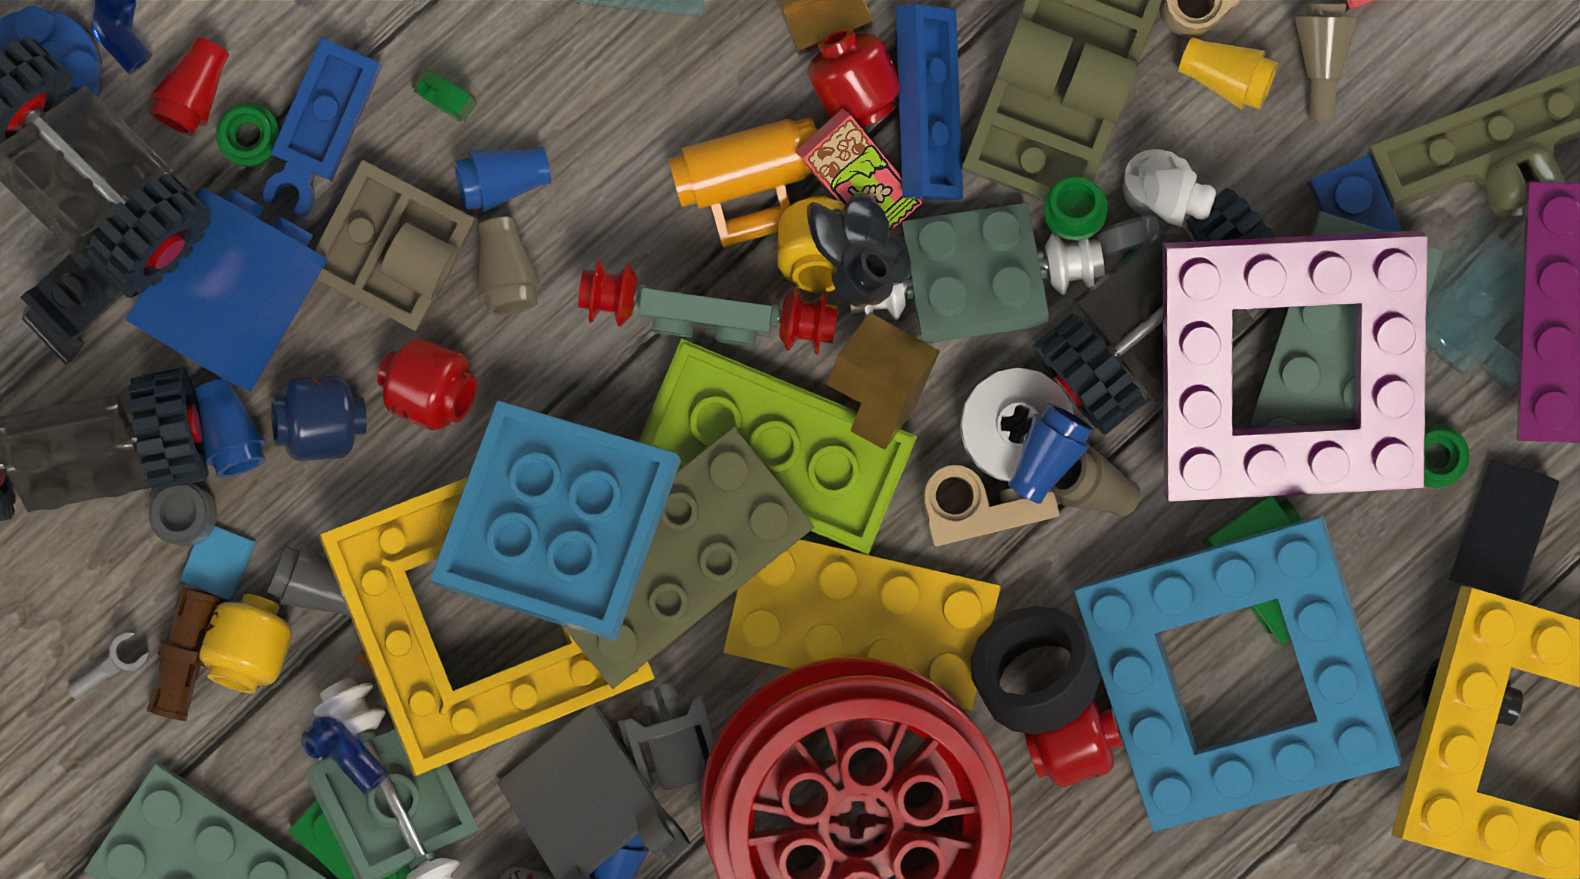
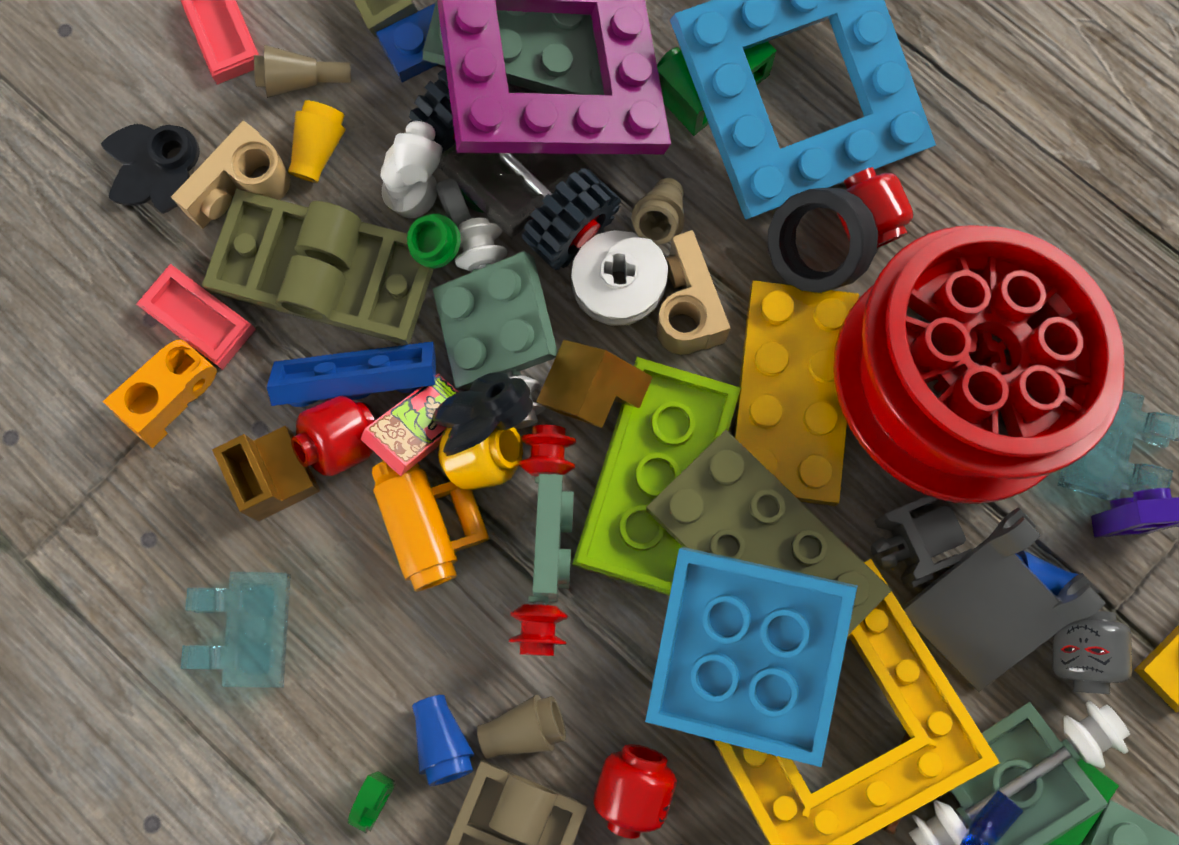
camera: 100 degrees left, 10 degrees down
(1050, 449) = (642, 237): blue cone -> none

